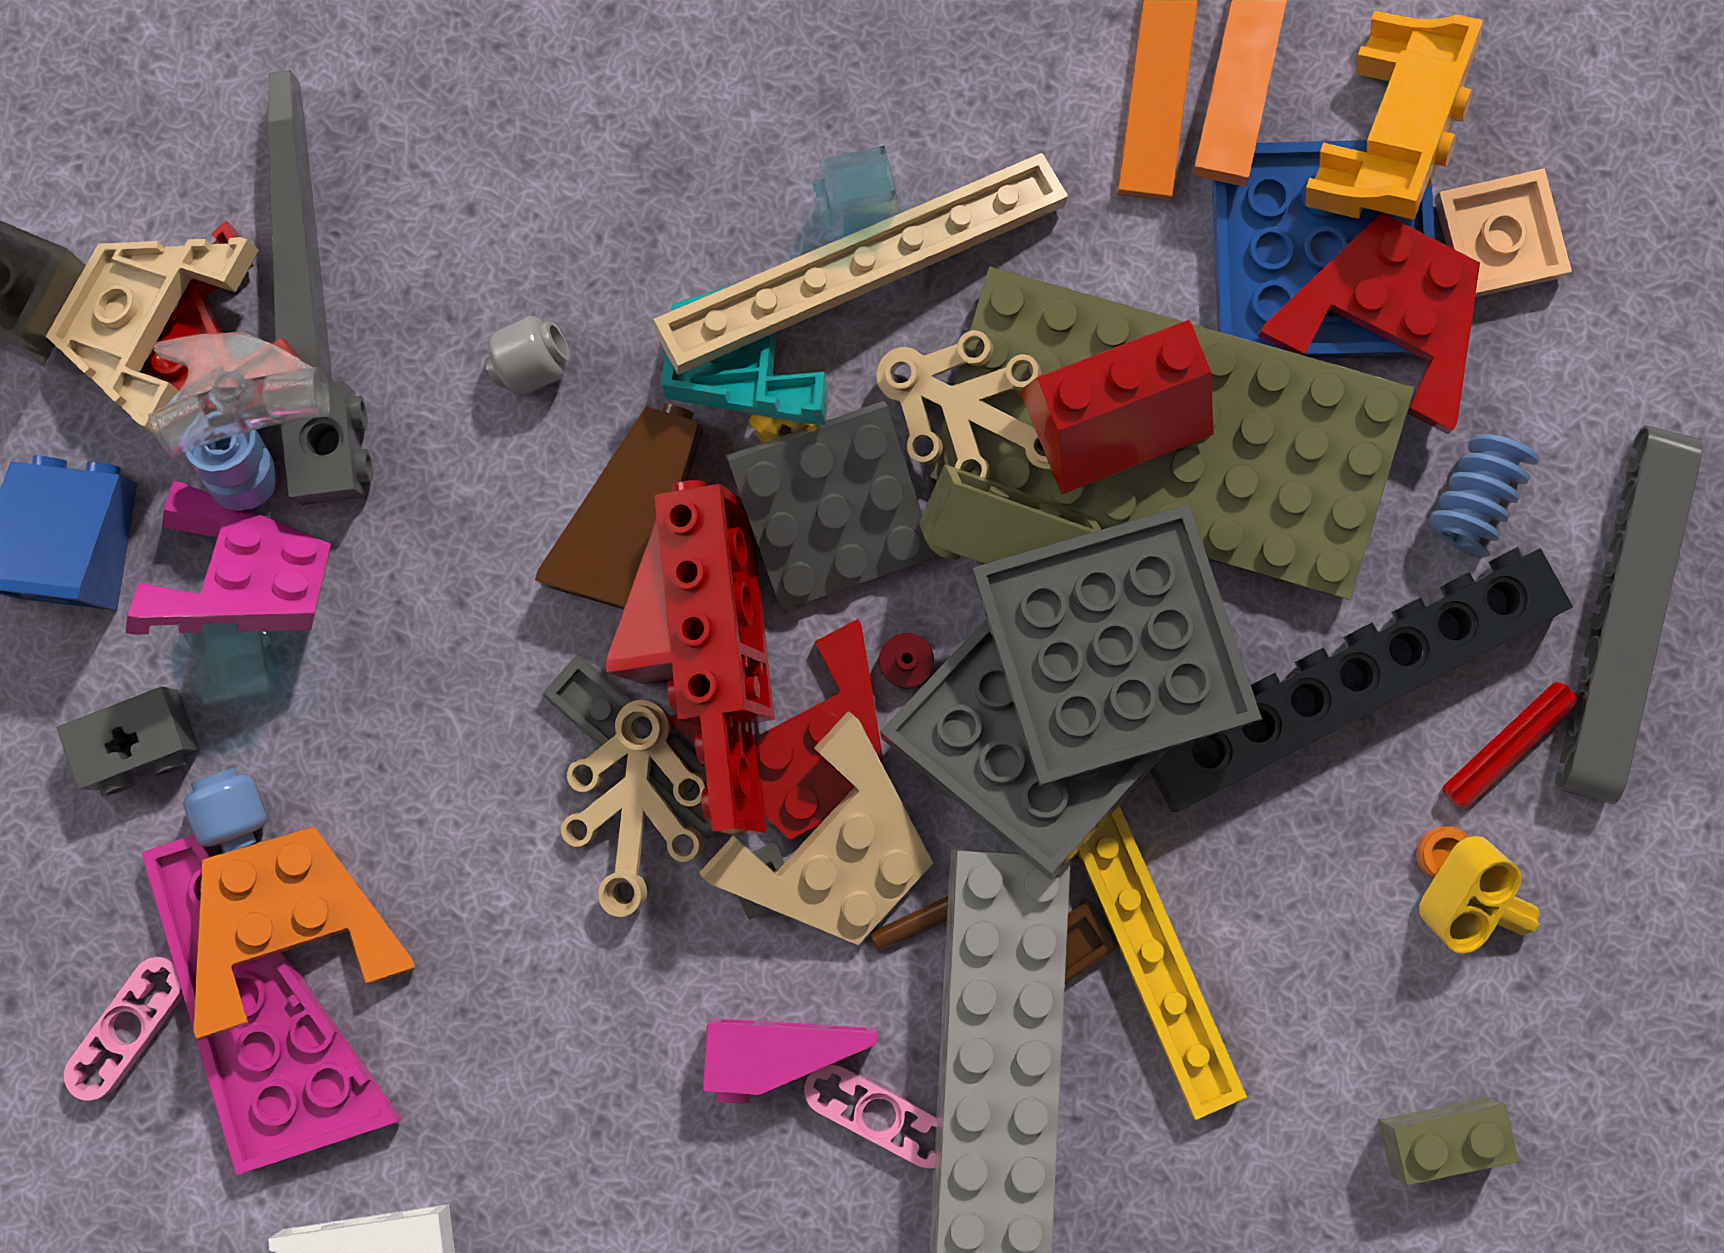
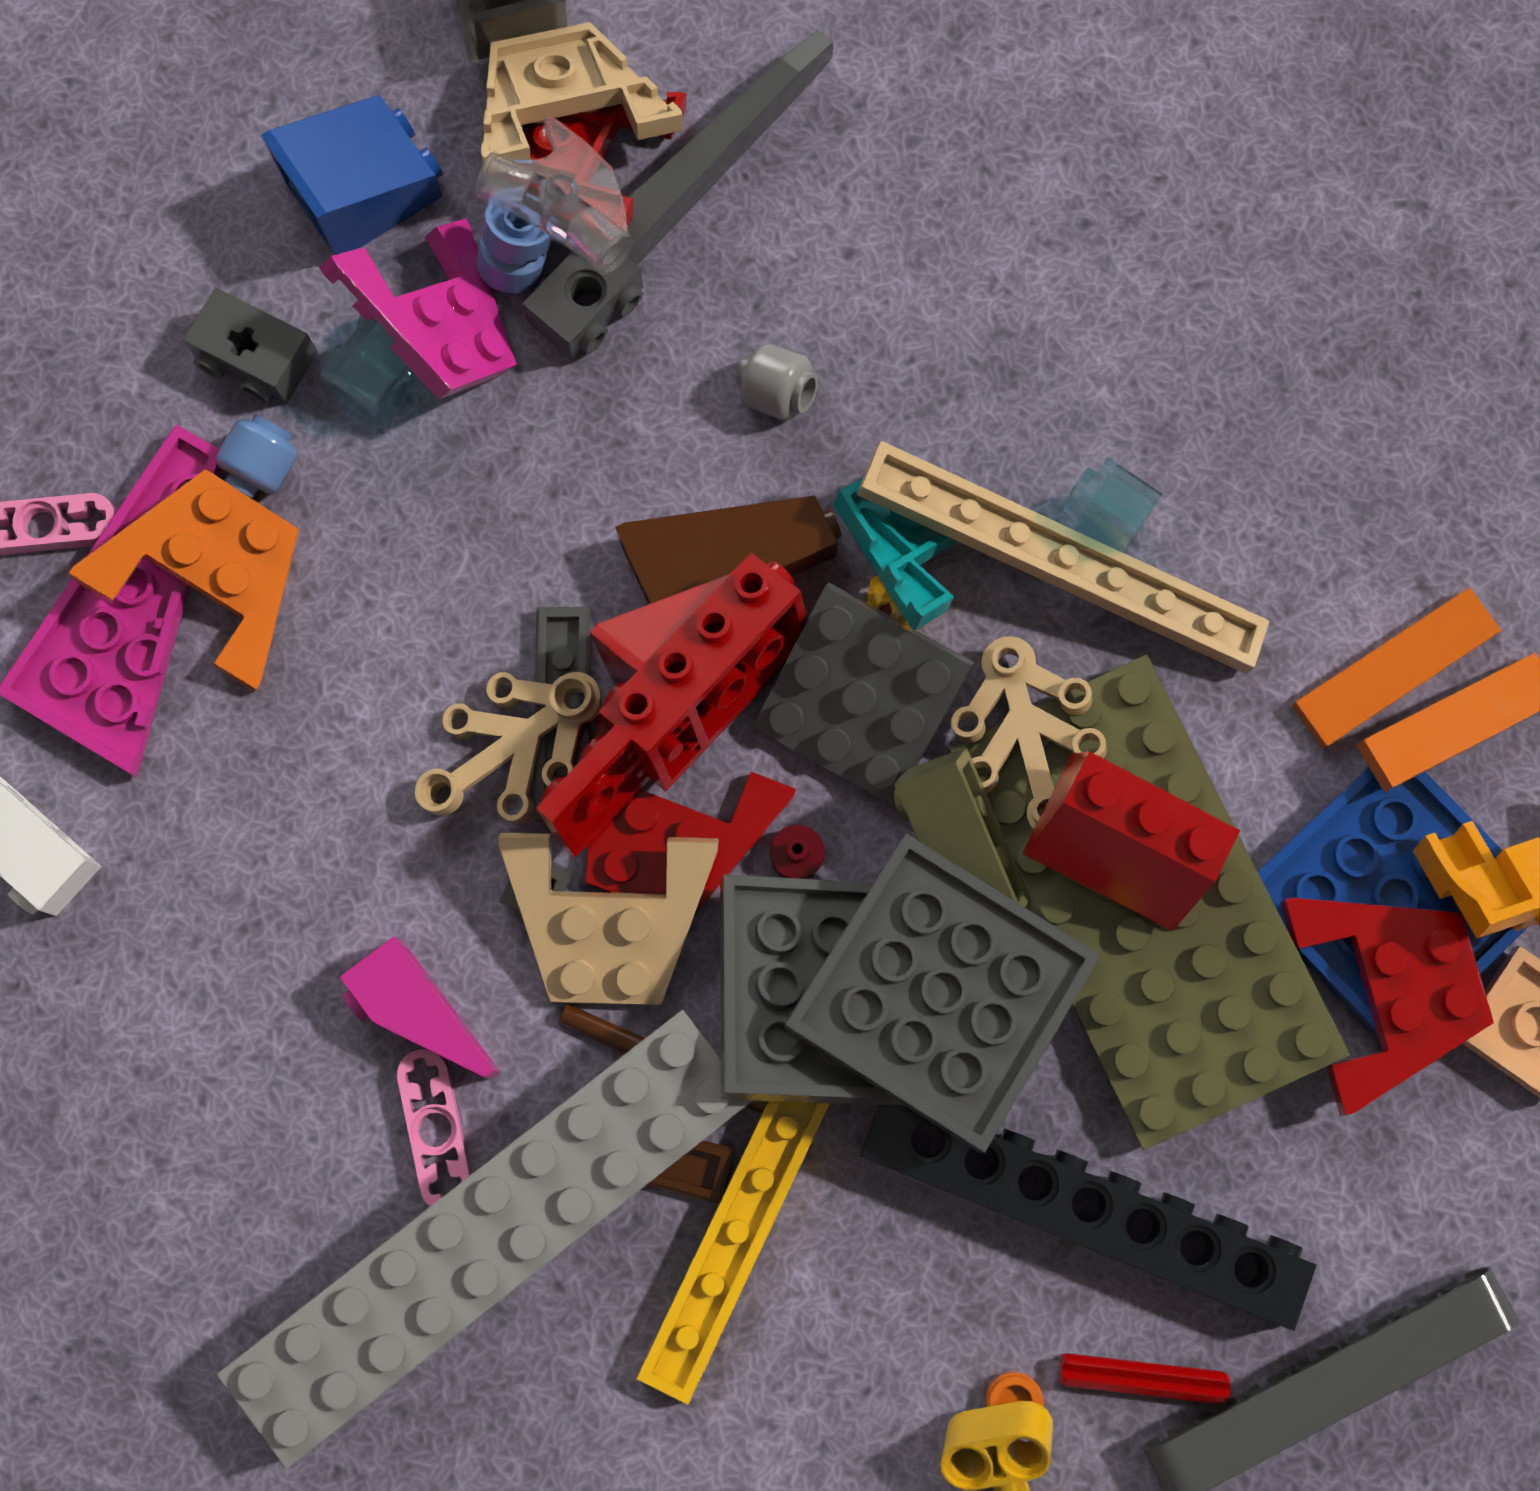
camera: 45 degrees right, 5 degrees down
(1478, 490) = (1319, 1179): medium blue piece -> none

